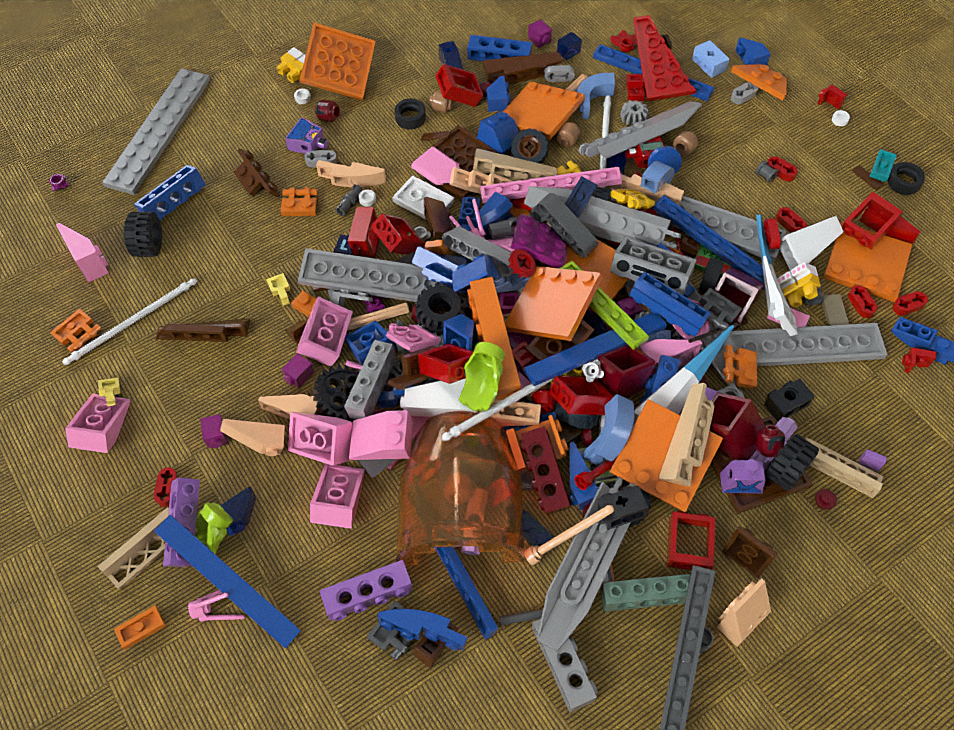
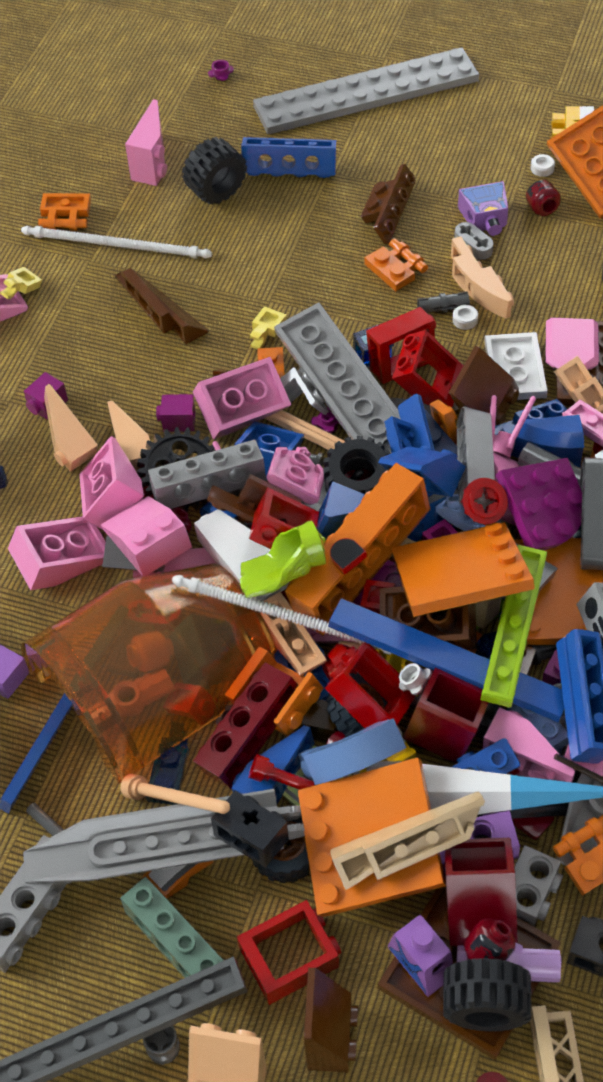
camera: 55 degrees right, 5 degrees down
(506, 343) = (347, 554): none -> black tile

